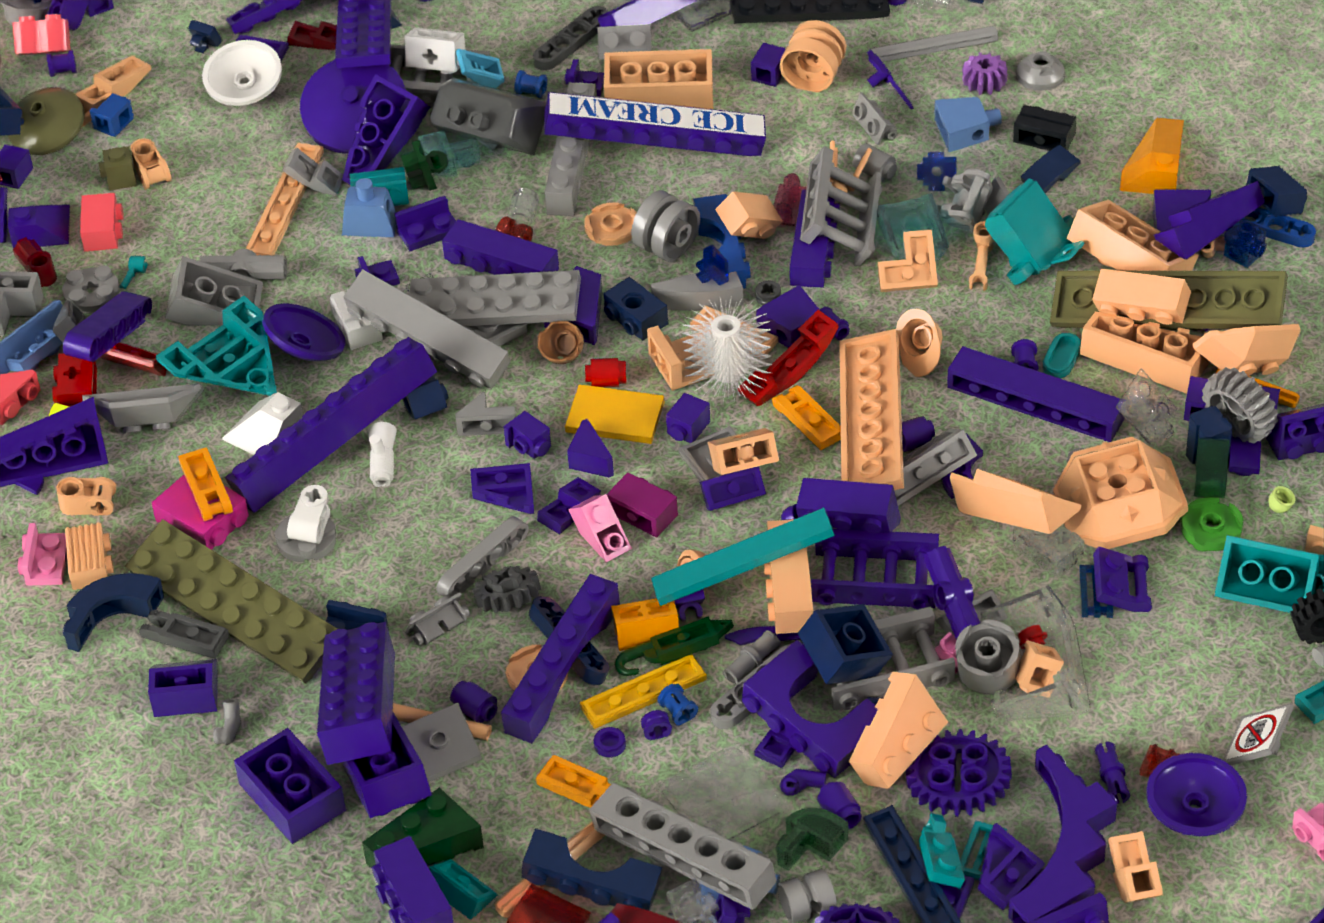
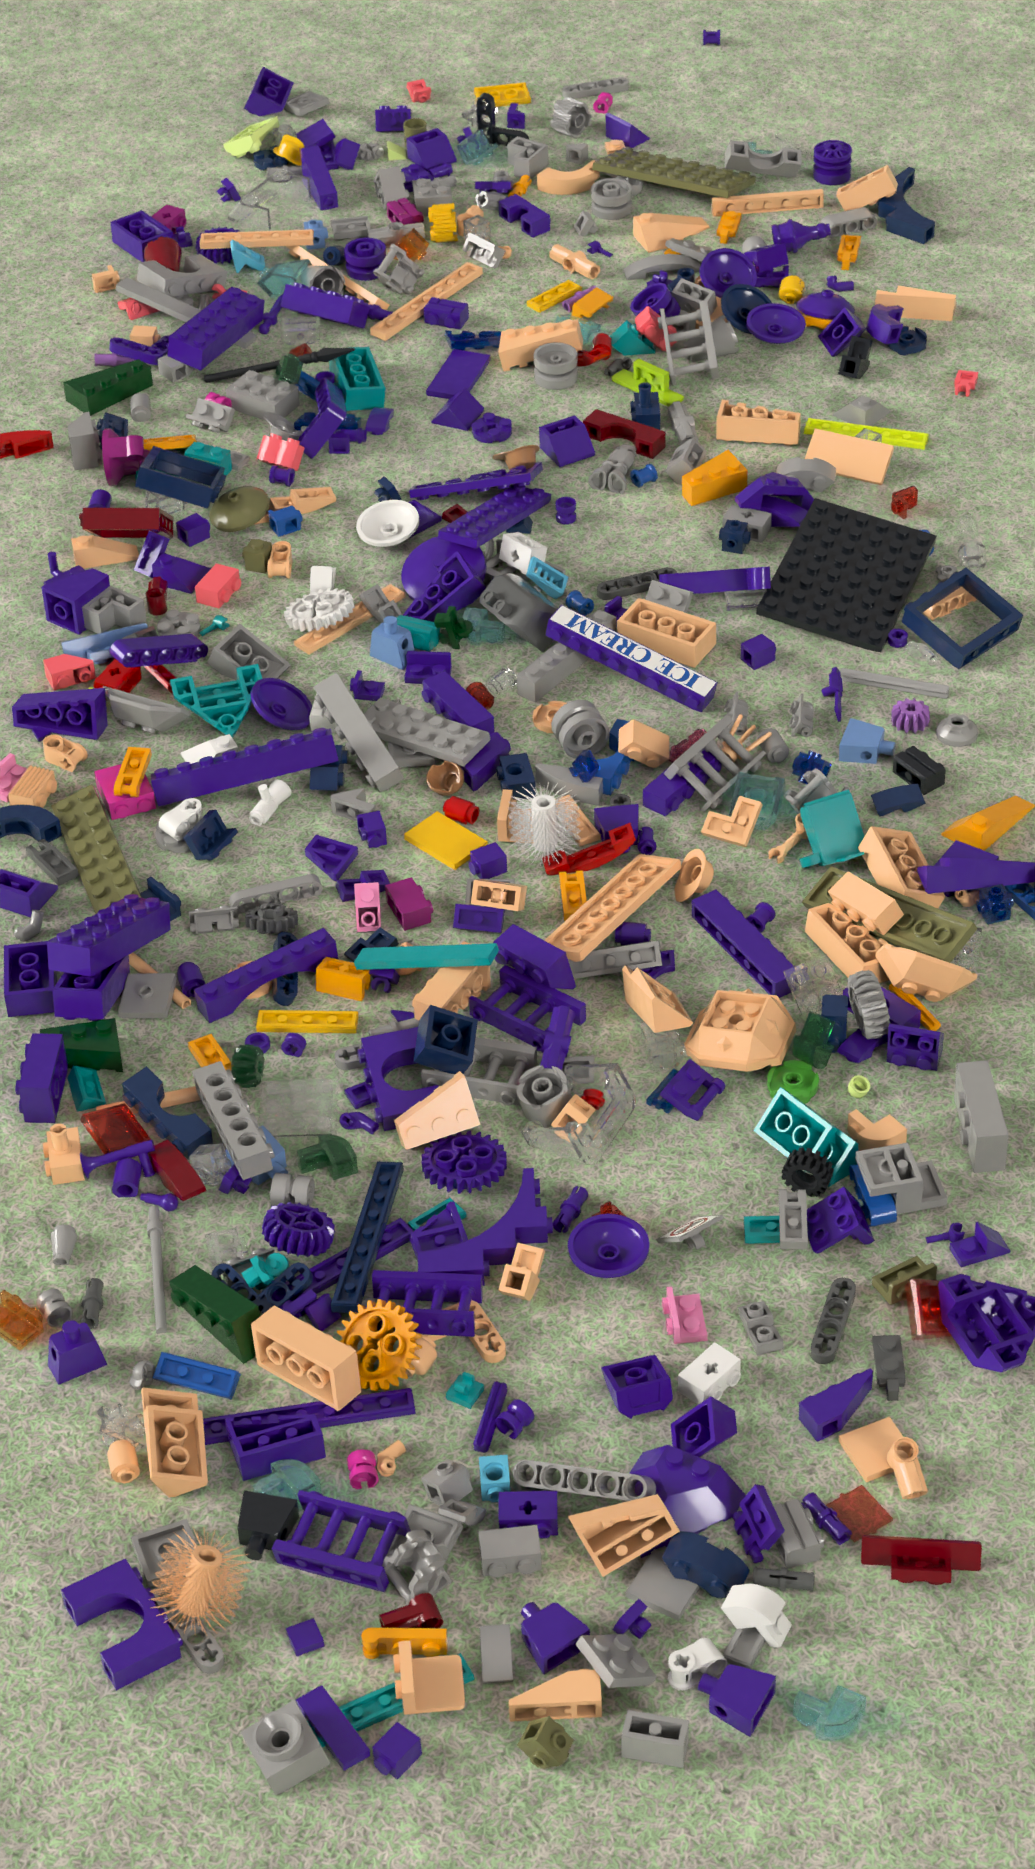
camera: 30 degrees right, 5 degrees down
(217, 170) = (322, 578): none -> white slope
(251, 265) = (289, 649): light grey piece -> none
(264, 195) = (319, 609): none -> white gear
(352, 524) = (209, 836): none -> dark blue bracket
(589, 453) = (402, 854): dark purple slope -> none
(633, 770) = (247, 1065): none -> clear green gear
(637, 576) = (379, 938): none -> dark blue slope
(675, 644) = (351, 1000): dark green plate -> none
(677, 704) = (319, 1038): blue bush -> none
(801, 142) = (734, 708): none -> light grey hinge
(813, 56) = (788, 655): light nougat wheel -> none
(838, 800) = (367, 1146): dark purple brick -> none
(940, 853) = (403, 1205): teal hinge -> none
(1062, 355) = (789, 928): teal tile -> none

